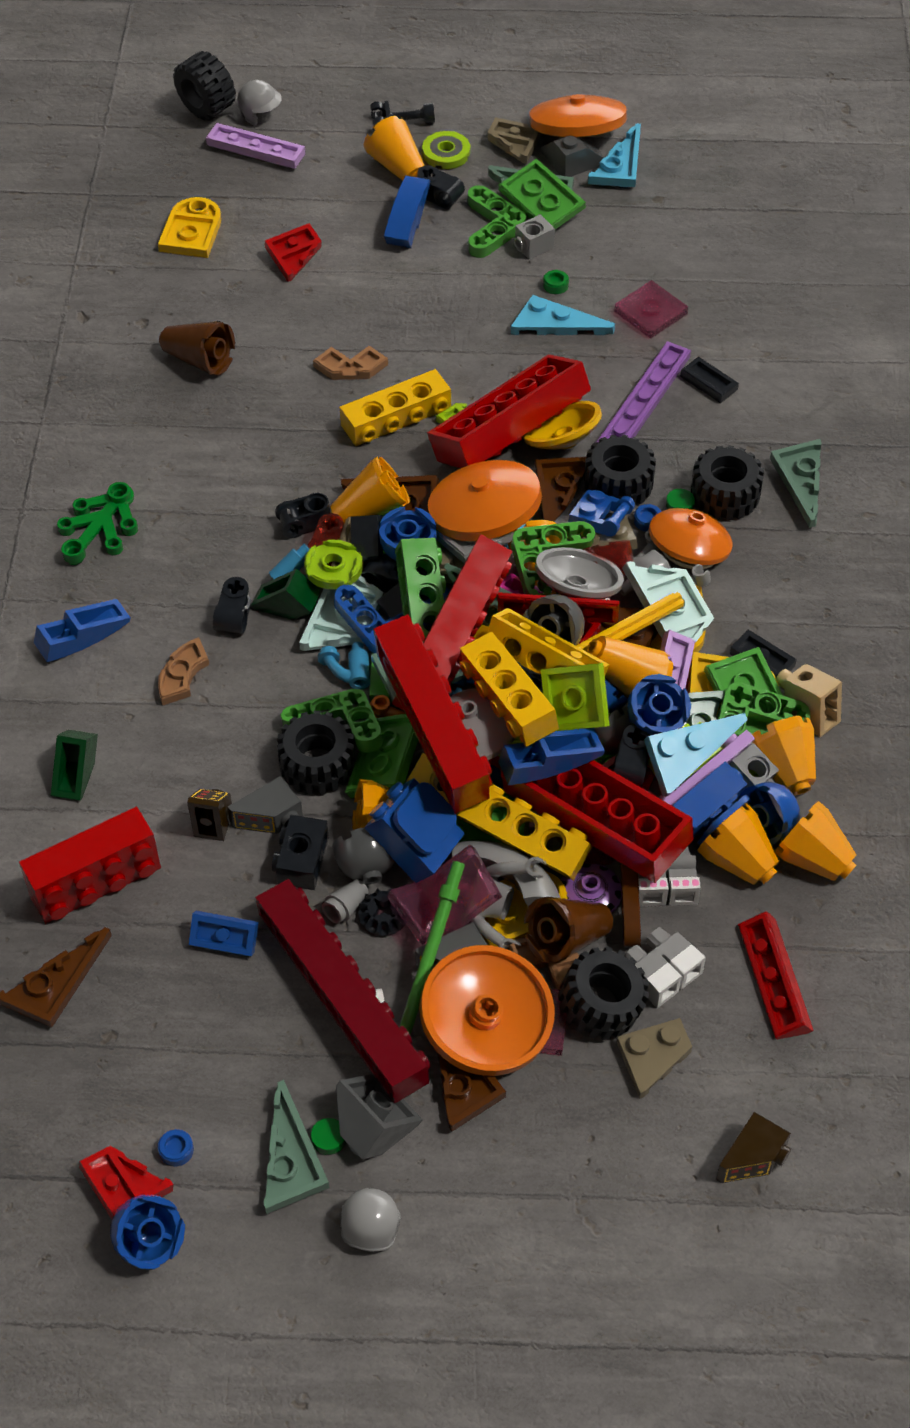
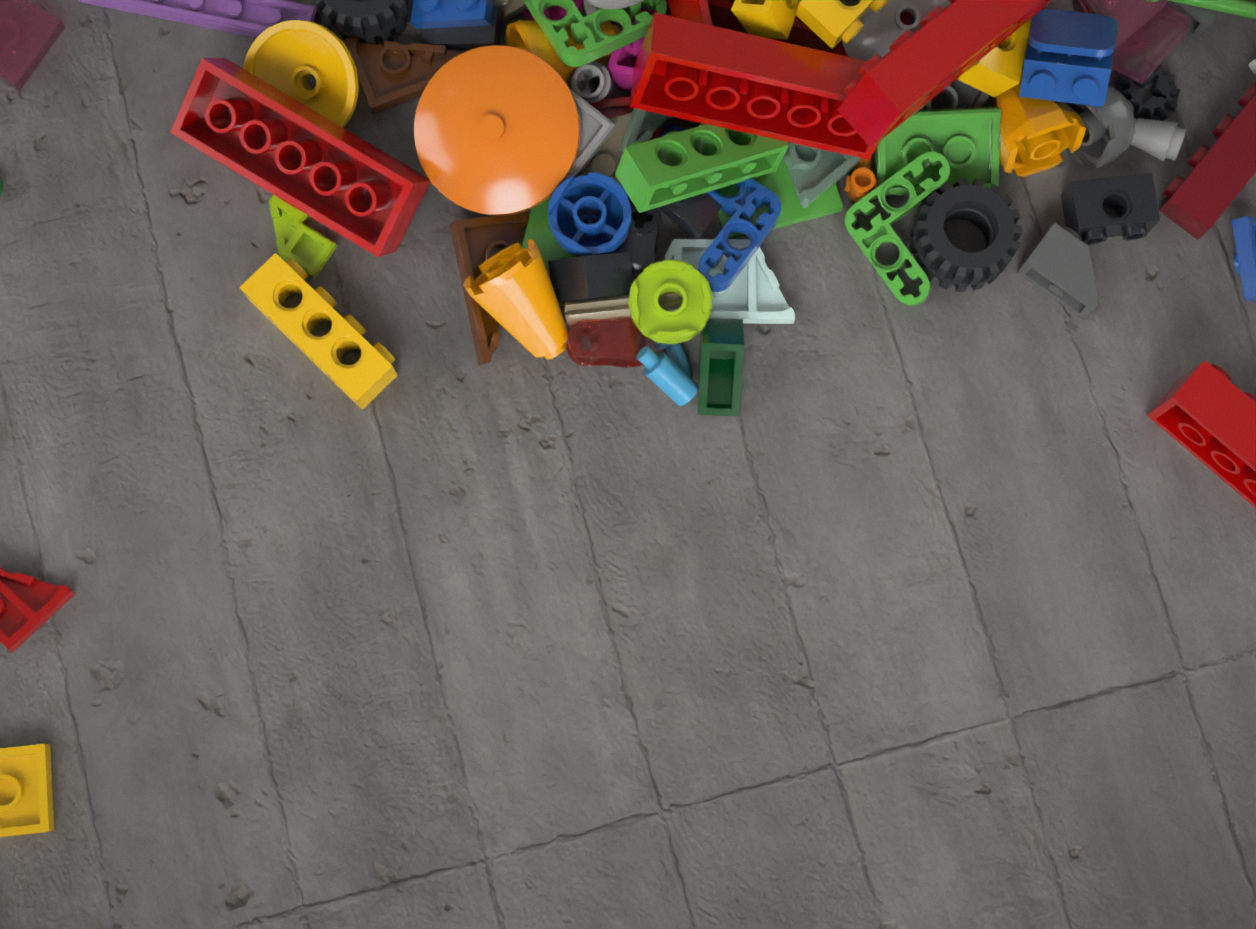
camera: 110 degrees left, 25 degrees up
(73, 763) = (1082, 540): dark green slope -> none
(79, 629) = (863, 625): blue slope -> none
(117, 497) = (656, 683): green plant -> none
(180, 669) = (877, 468): medium nougat tile -> none
(200, 345) = (276, 669): reddish brown cone -> none
(209, 813) = (1102, 331): dark brown slope -> none
(233, 606) = (769, 429): black piece -> none
(303, 514) = (568, 395): black piece -> none
(340, 367) = (248, 445): medium nougat tile -> none
(358, 662) = (801, 235): dark azure plant -> none
(557, 319) = (62, 173): medium azure wing -> none

